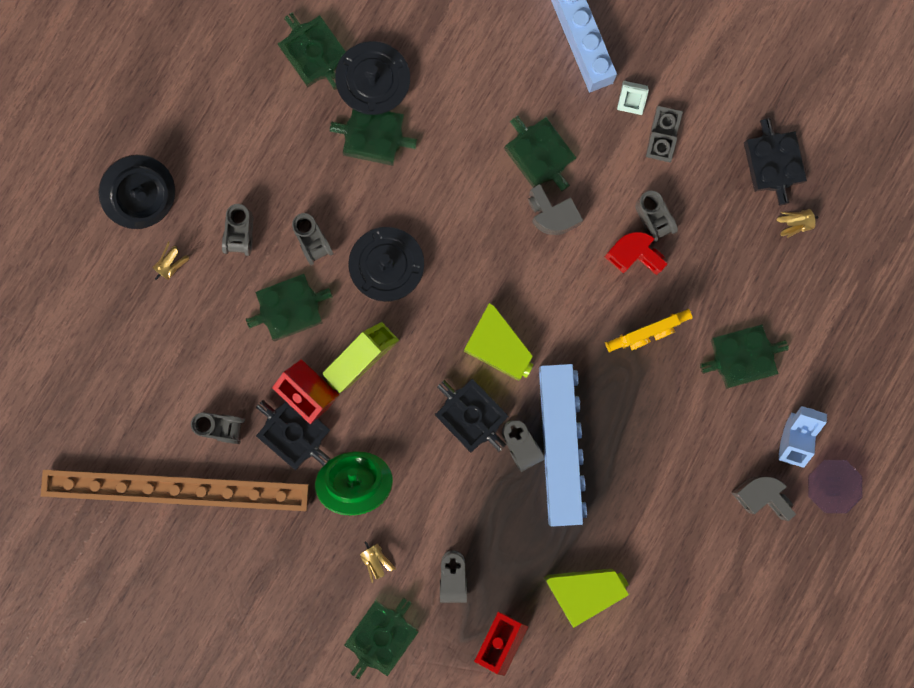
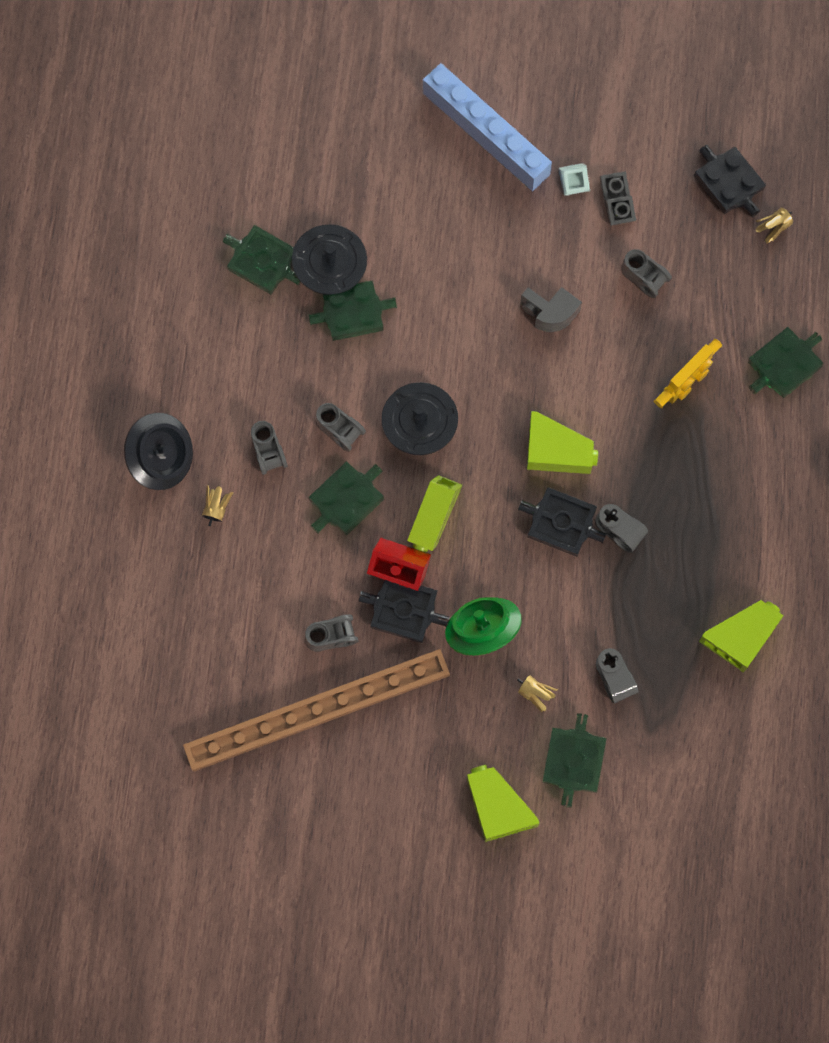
camera: 20 degrees left, 10 degrees down
(294, 648) = (498, 805): none -> lime slope
(501, 644) = (688, 713): red brick -> none
(540, 153) = (513, 262): clear green plate -> none
(561, 445) = (657, 512): light blue brick -> none
(634, 247) = (640, 307): red brick -> none

